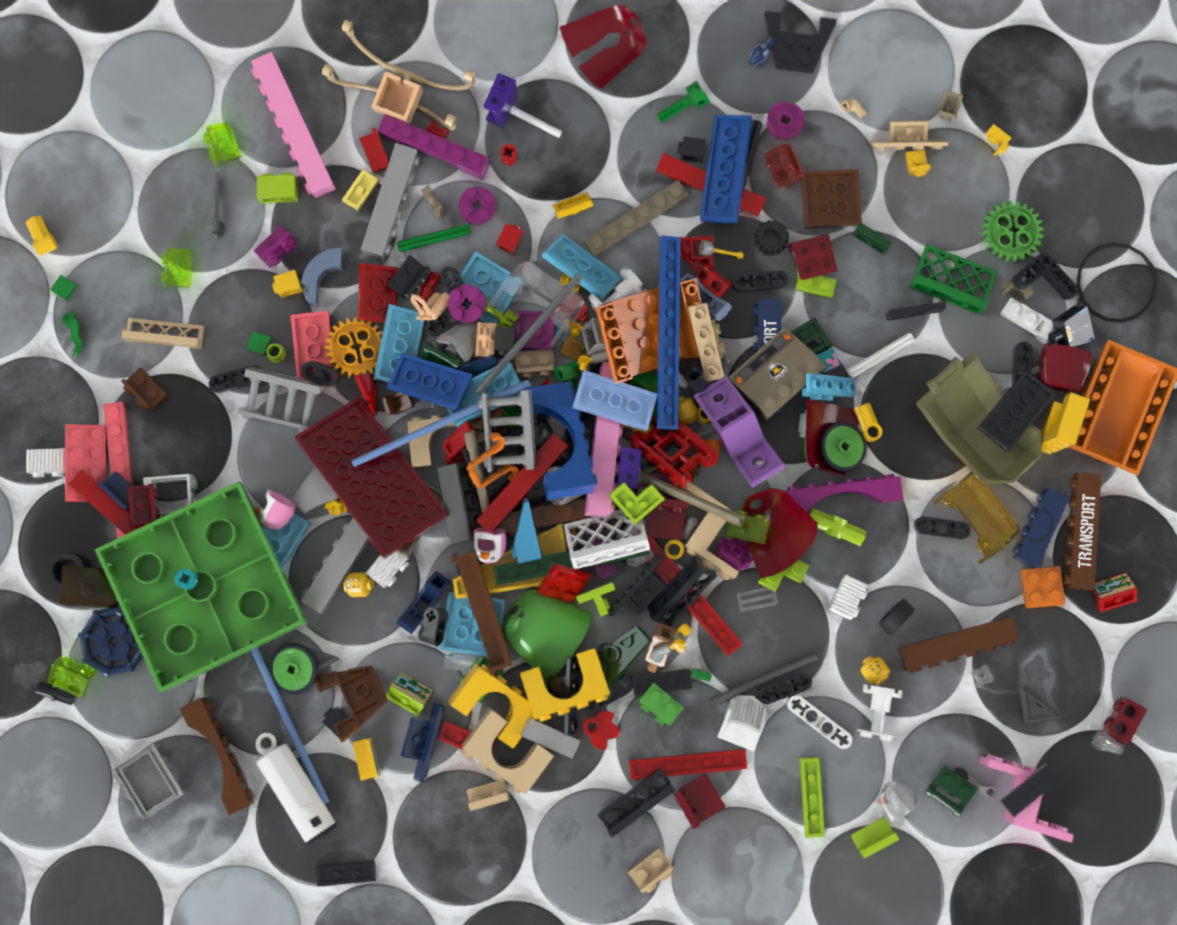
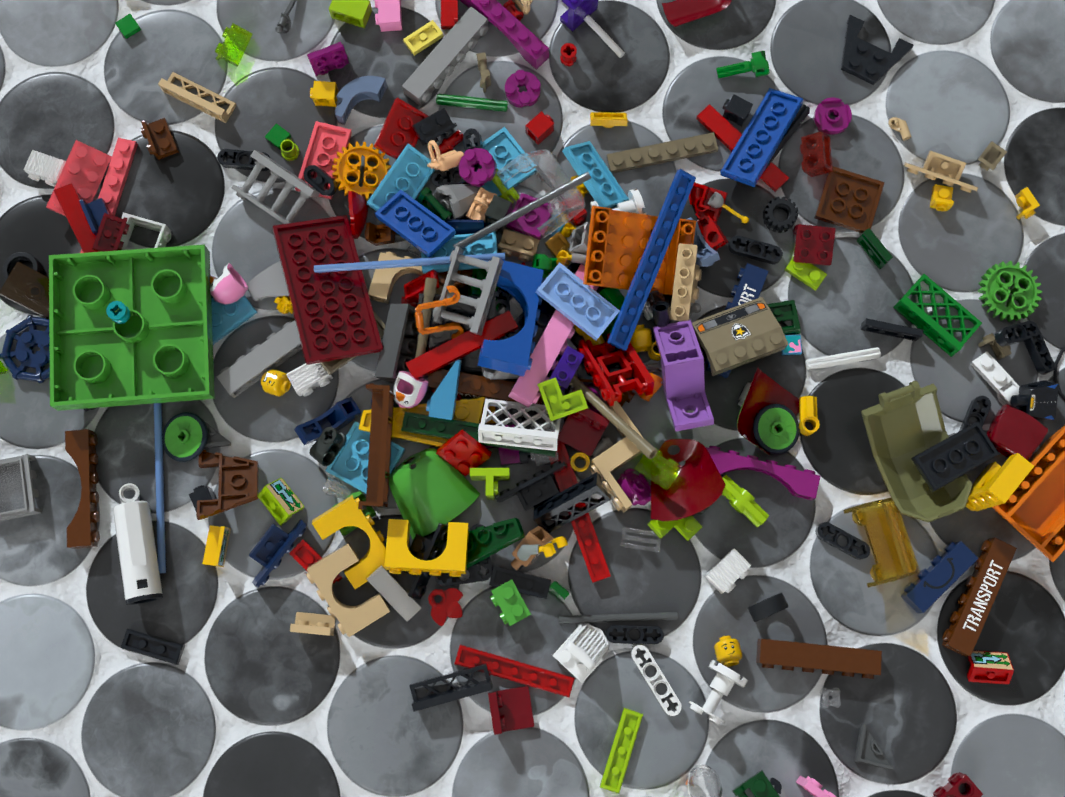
camera: 20 degrees right, 5 degrees down
(70, 322) = (121, 58): green hair -> none
(651, 870) = (439, 759): tan bracket -> none
(760, 52) = (832, 49): dark blue piece -> none
(826, 387) = (782, 366): medium azure bracket -> none
(1042, 587) = (920, 635): orange plate -> none

